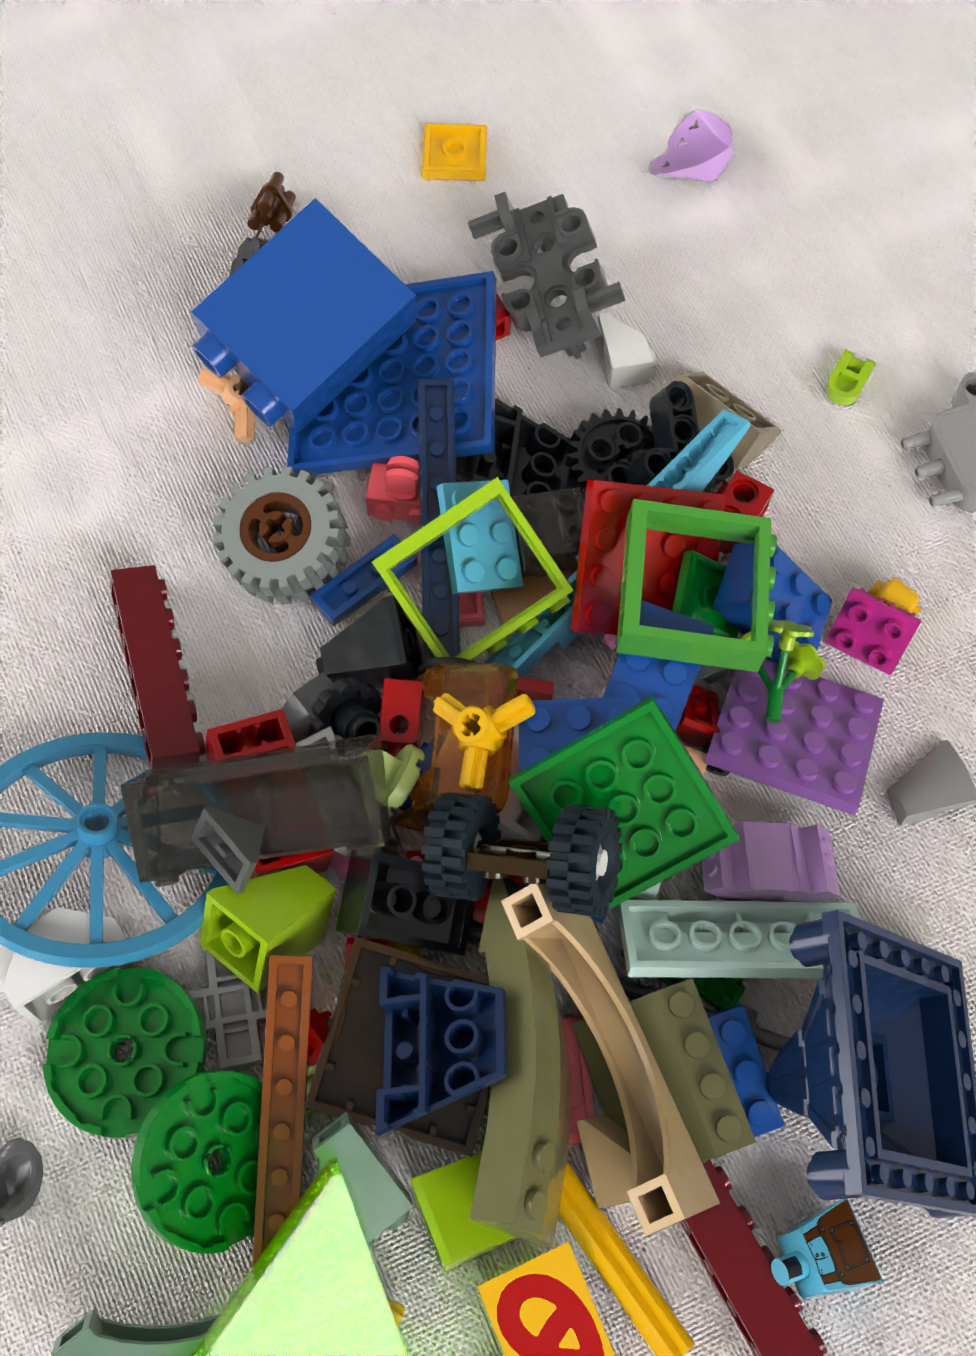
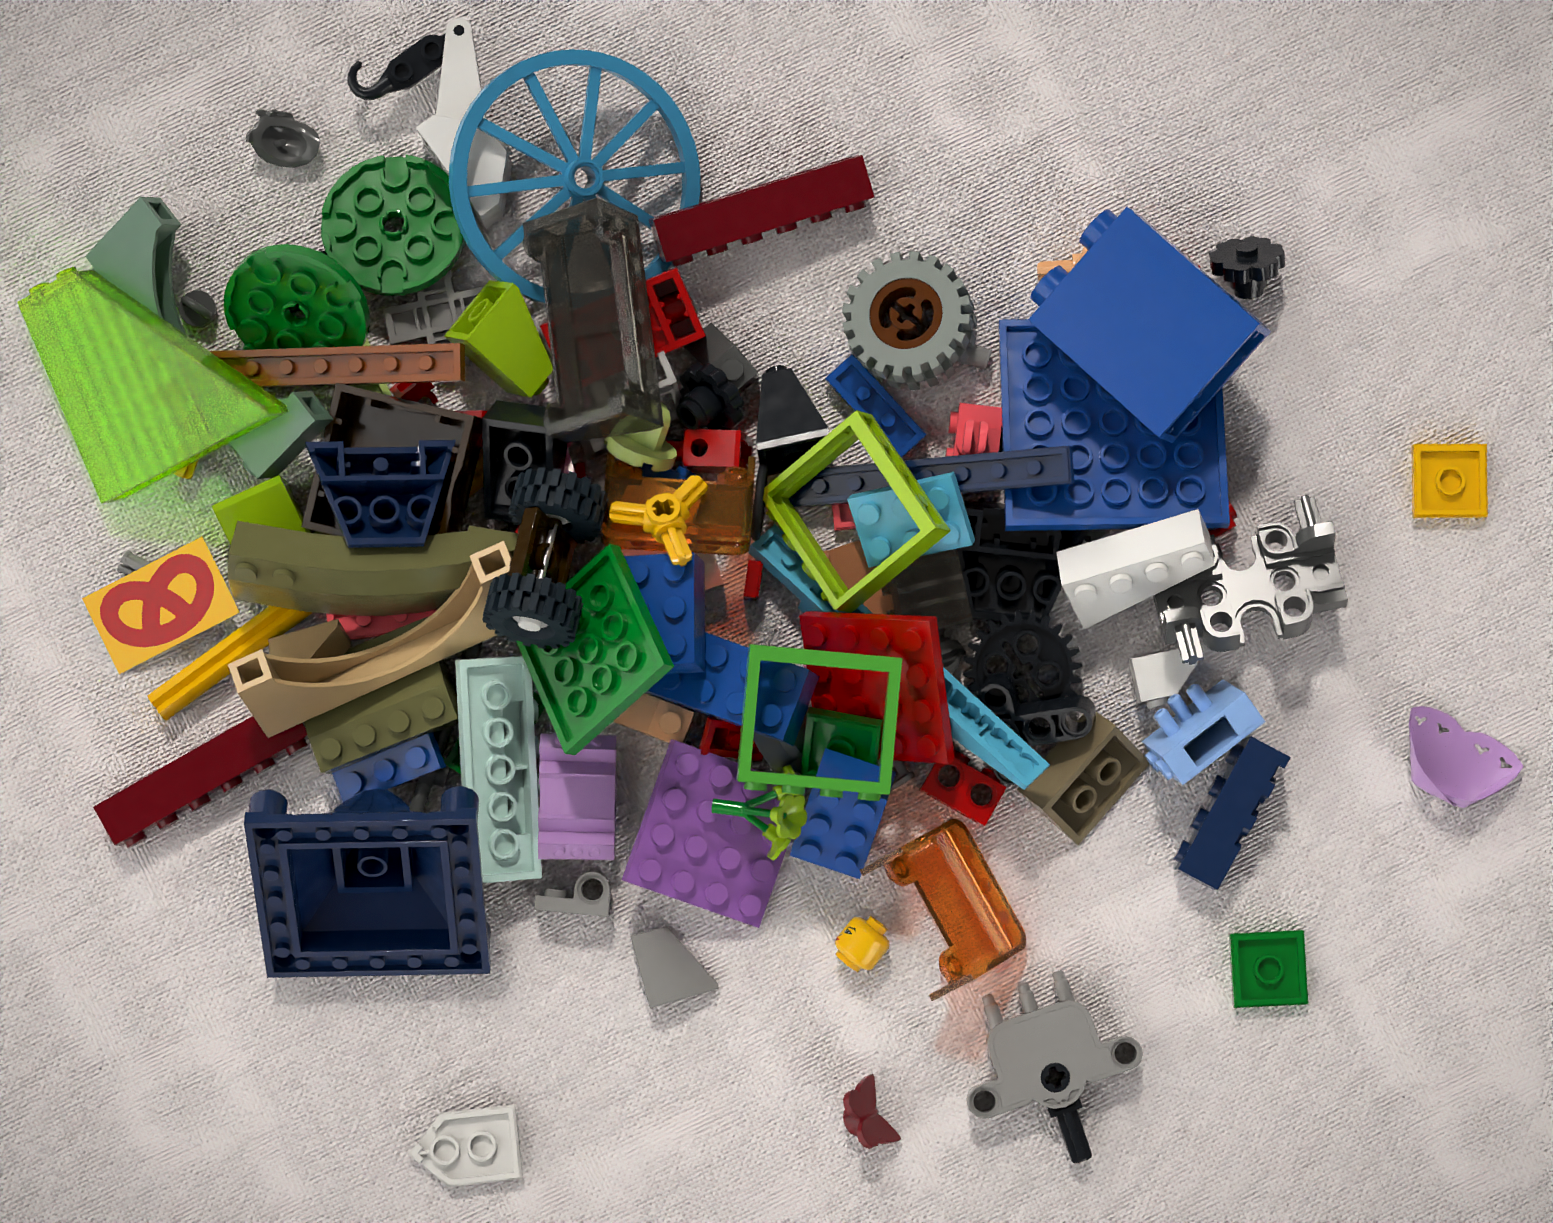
camera: 90 degrees right, 20 degrees up
(198, 1297) = (197, 309): none -> dark grey tile
(229, 845) = (558, 300): dark grey slope -> none
(272, 206) = (1344, 276): reddish brown piece -> none
(530, 349) = (1133, 565): none -> white wedge
(680, 314) = (1200, 730): none -> light blue piece
(746, 301) = (1230, 812): none -> dark blue wedge
(826, 1254) = (224, 829): torso -> none
(845, 385) = (1132, 915): lime plate -> none
(857, 515) = (961, 900): none -> clear orange windscreen
(872, 630) = (828, 904): dark pink hinge -> none
(876, 892) = (556, 900): none -> light grey plate
(881, 291) = (1268, 969): none -> green tile

